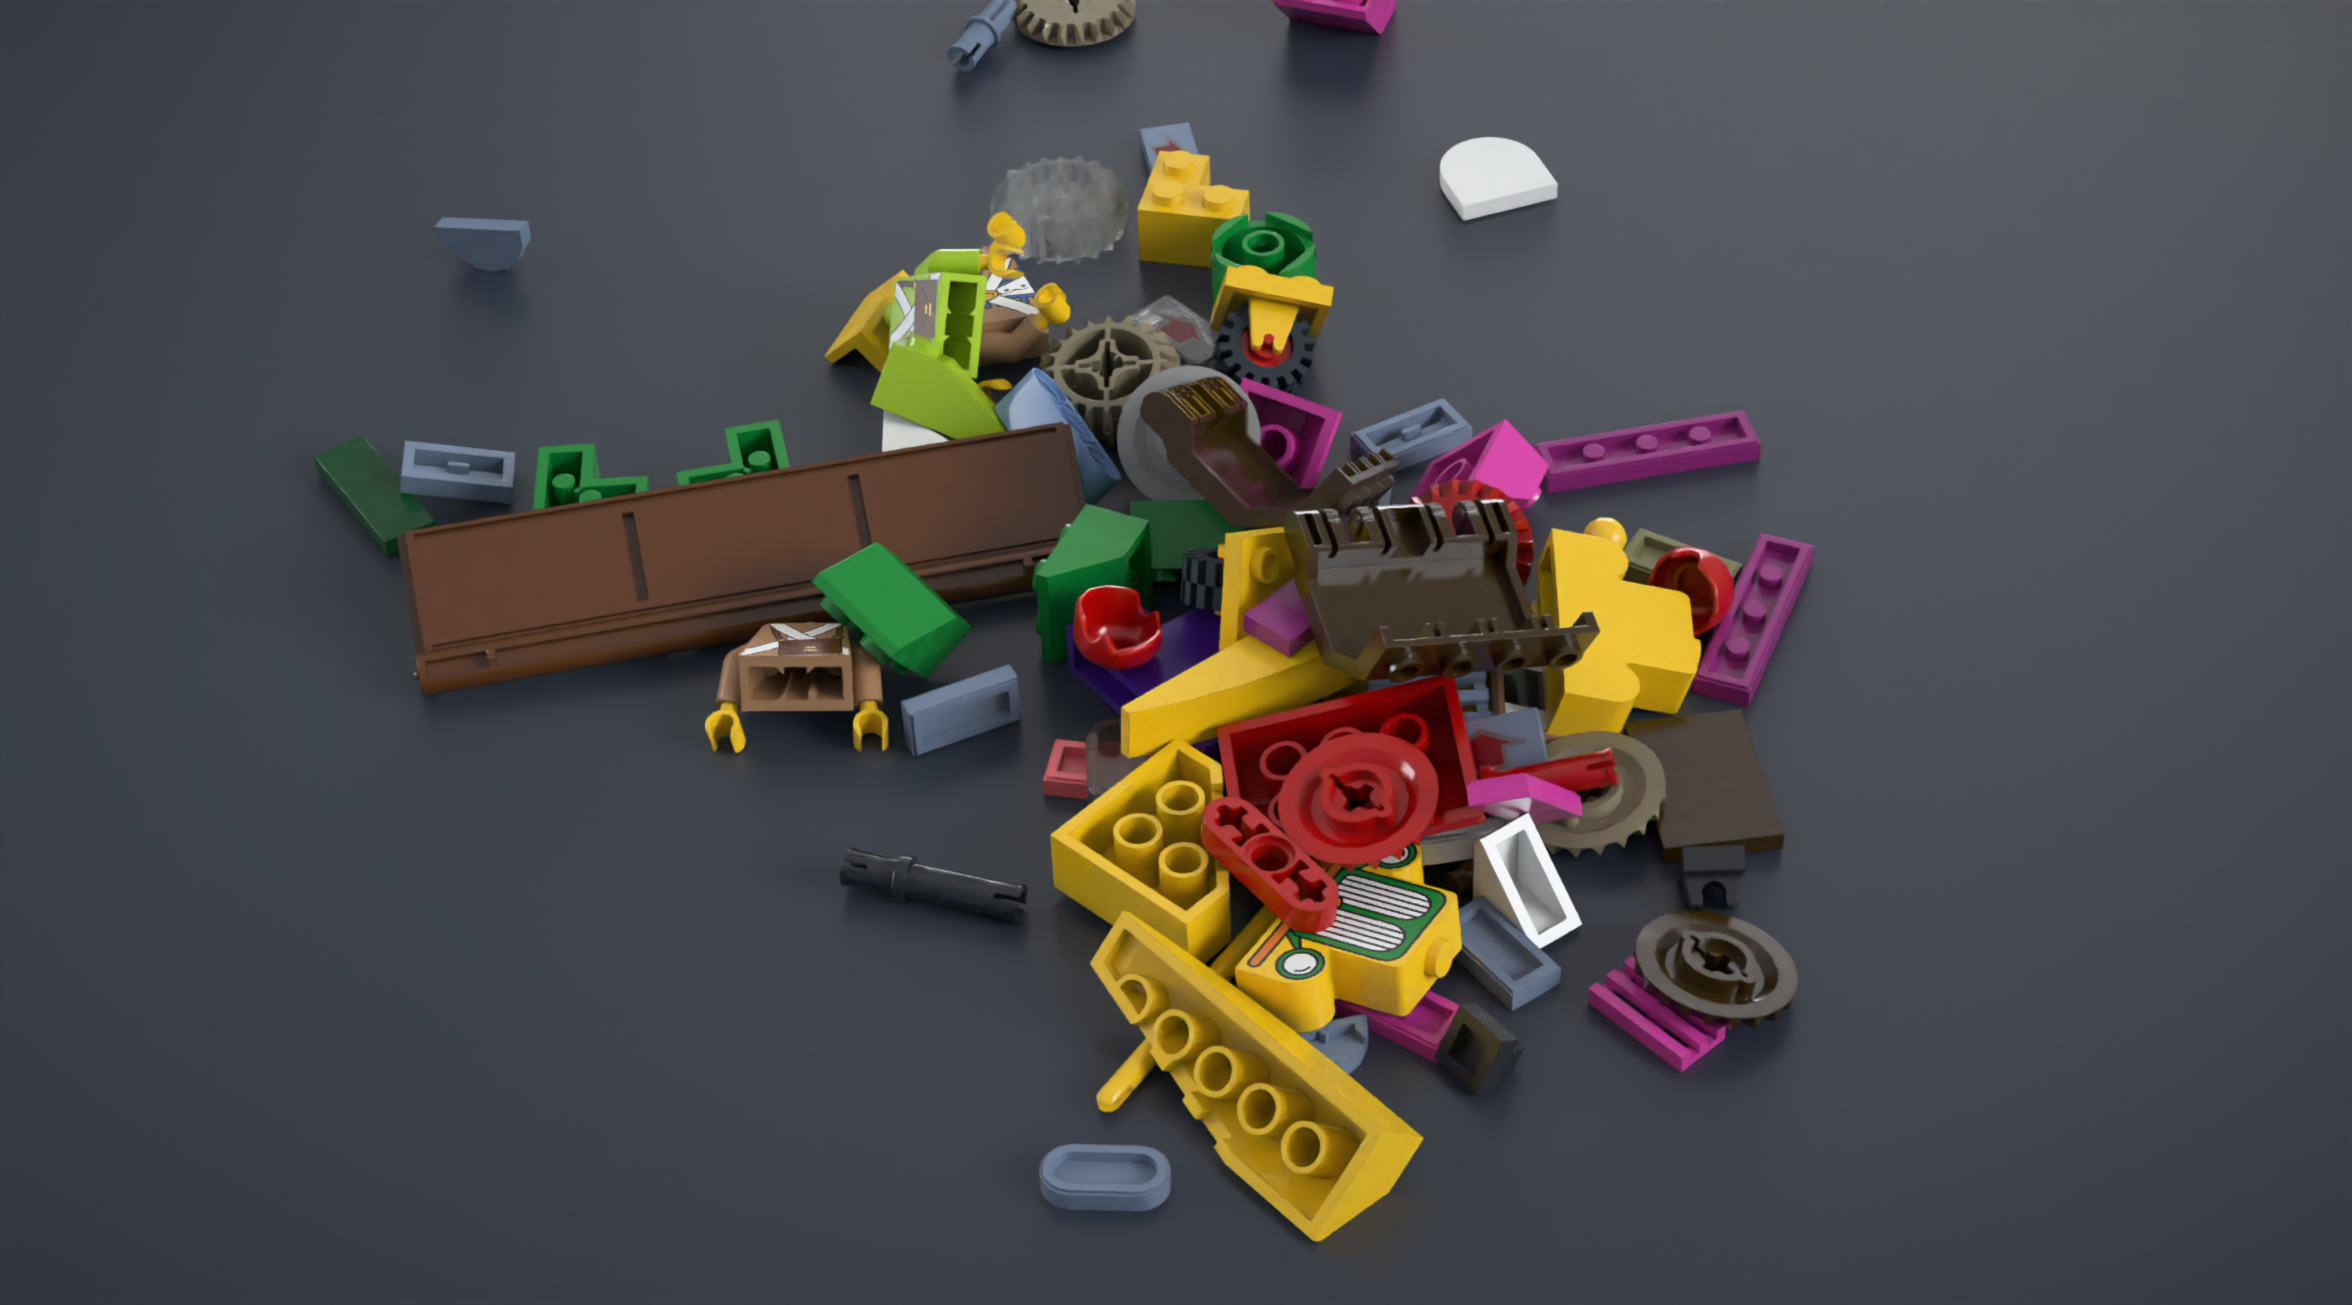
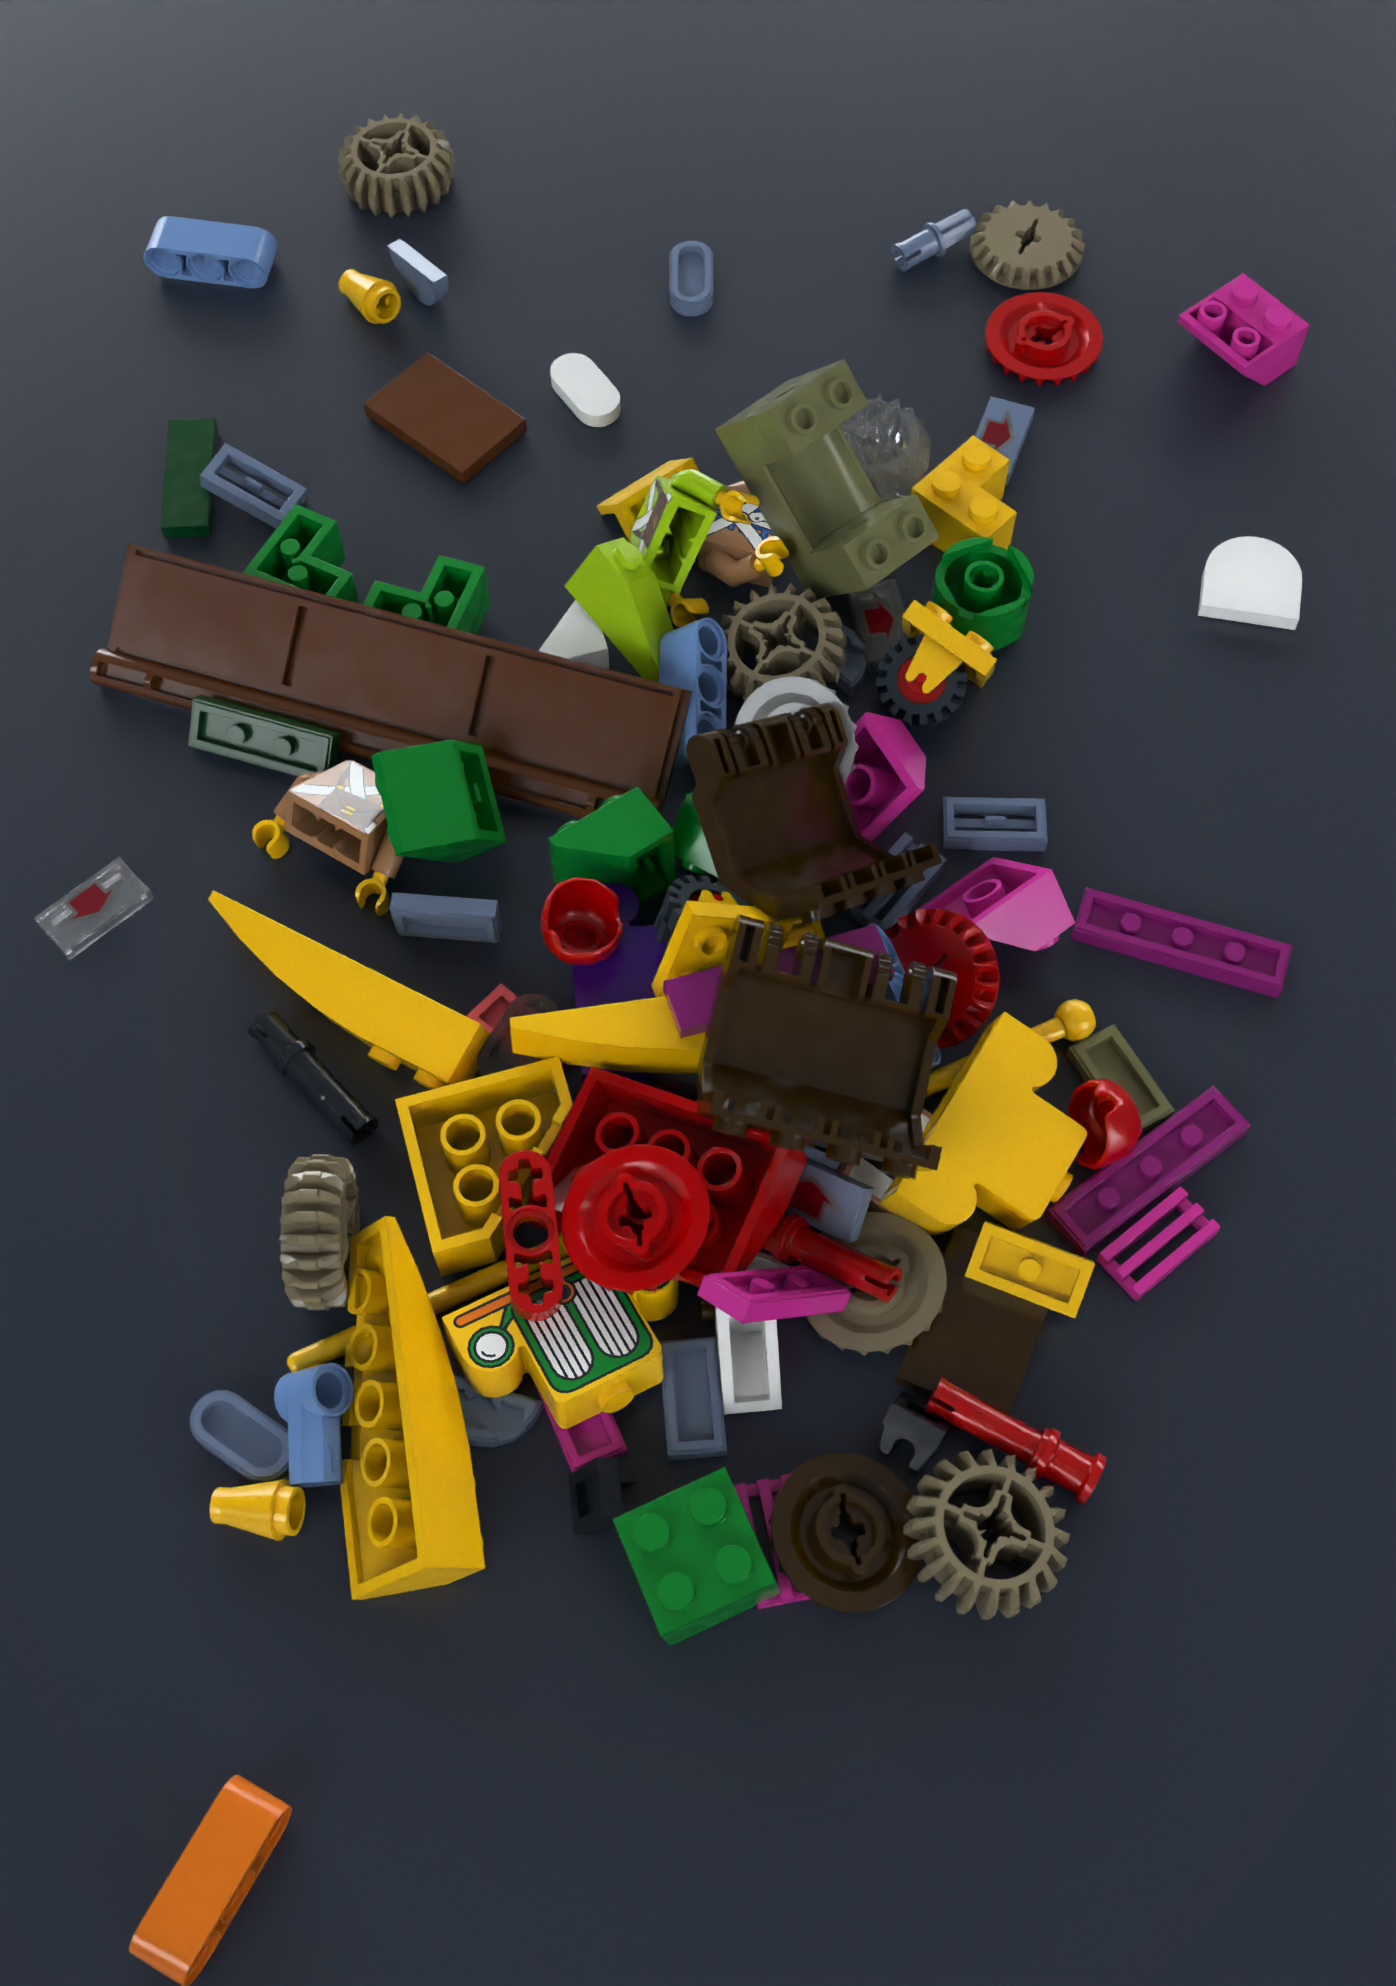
camera: 30 degrees right, 20 degrees up
(235, 306) = (211, 252): none -> medium blue beam
(378, 166) = (396, 165): none -> dark tan gear
(444, 278) = (372, 296): none -> yellow cone
(586, 863) = (94, 908): none -> clear tile
(607, 347) = (445, 417): none -> reddish brown tile
(647, 656) = (261, 737): none -> tile
(734, 272) = (585, 390): none -> white tile
(764, 149) = (691, 278): none -> sand blue tile
(920, 802) = (366, 1004): none -> yellow slope
(1021, 201) = (816, 488): none -> olive piece
(1060, 969) = (317, 1230): none -> dark tan gear
(1128, 66) = (1067, 323): none -> red gear
(1161, 1111) = (313, 1407): none -> medium blue piece
(1171, 1210) = (261, 1508): none -> yellow cone
(1604, 1039) = (696, 1557): none -> green brick
(1716, 713) = (1030, 1269): none -> yellow panel
(1813, 635) = (1190, 1215): none -> dark pink tile
(1828, 836) = (1041, 1450): none -> red pin
(1834, 908) = (1031, 1545): none -> dark tan gear

